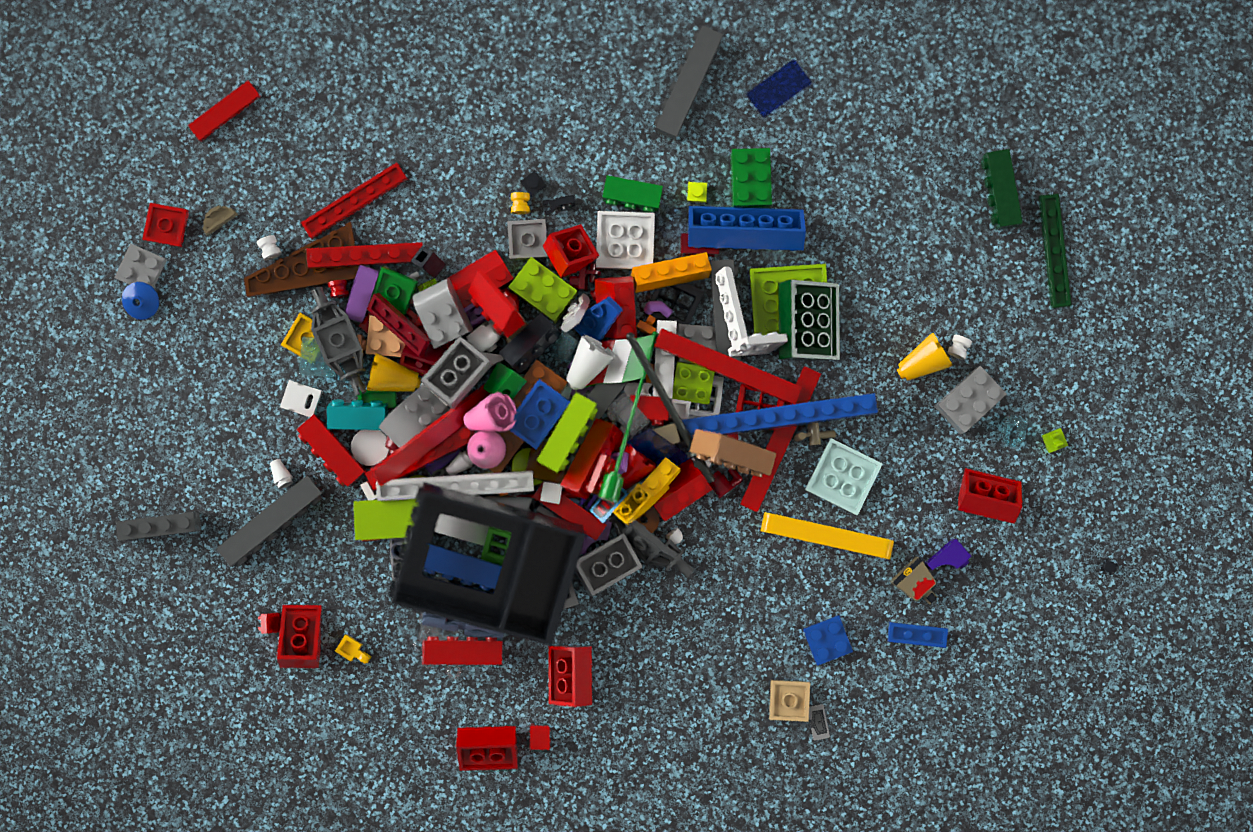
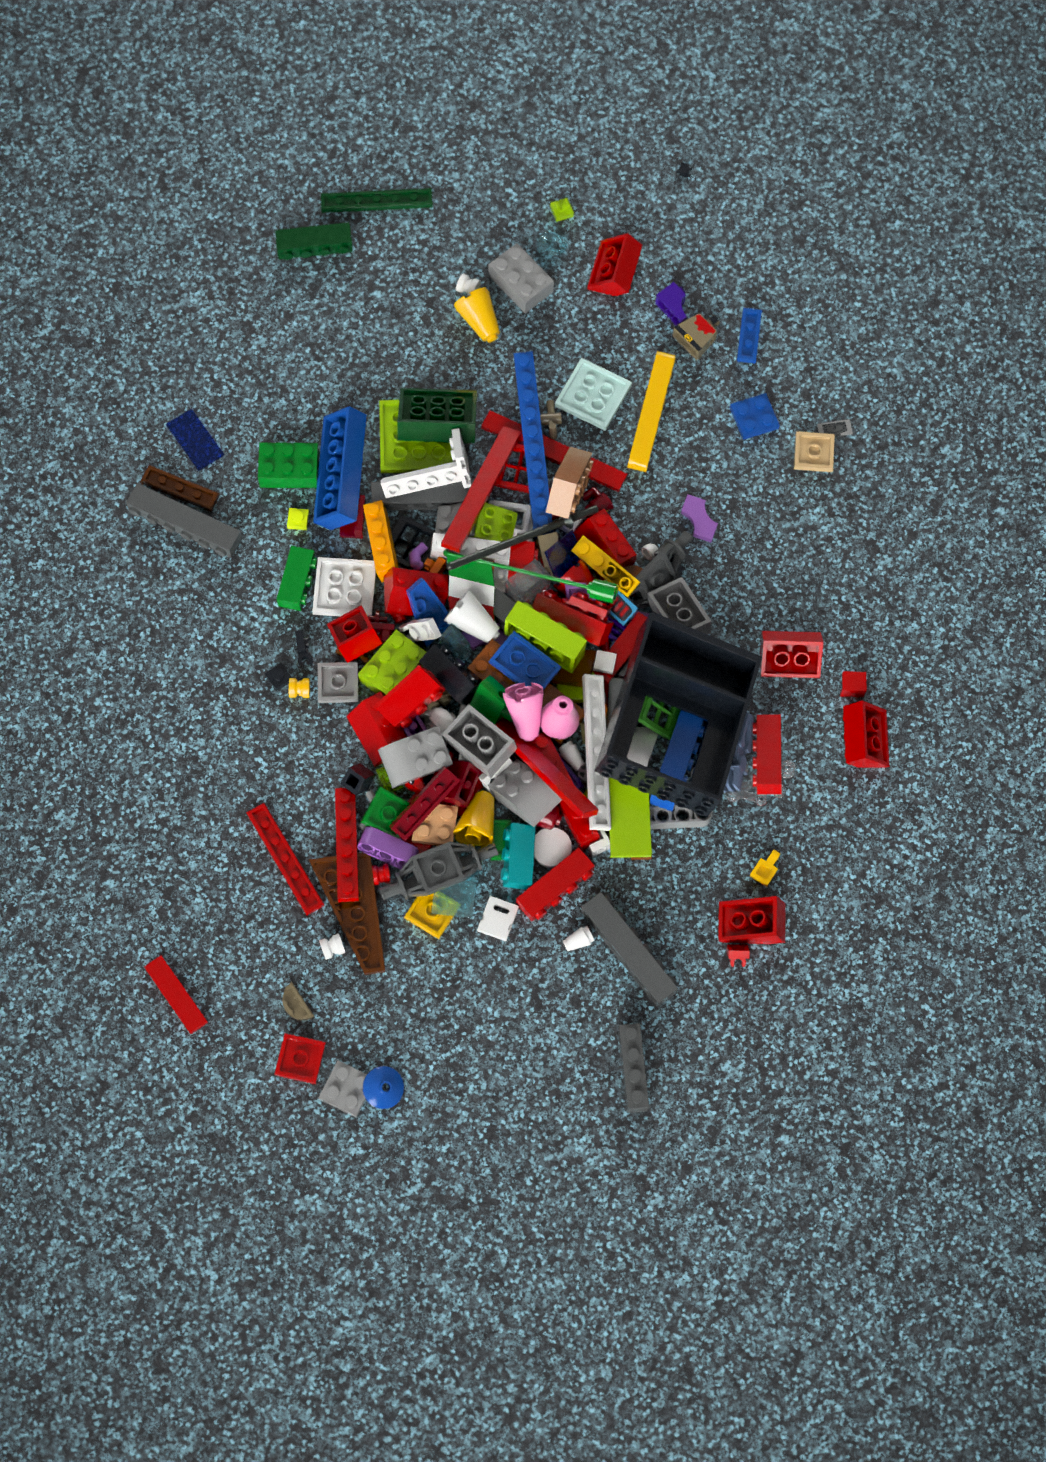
camera: 90 degrees left, 15 degrees down
(704, 588) = (695, 511): none -> medium lavender tile
(725, 77) = (180, 488): none -> reddish brown tile

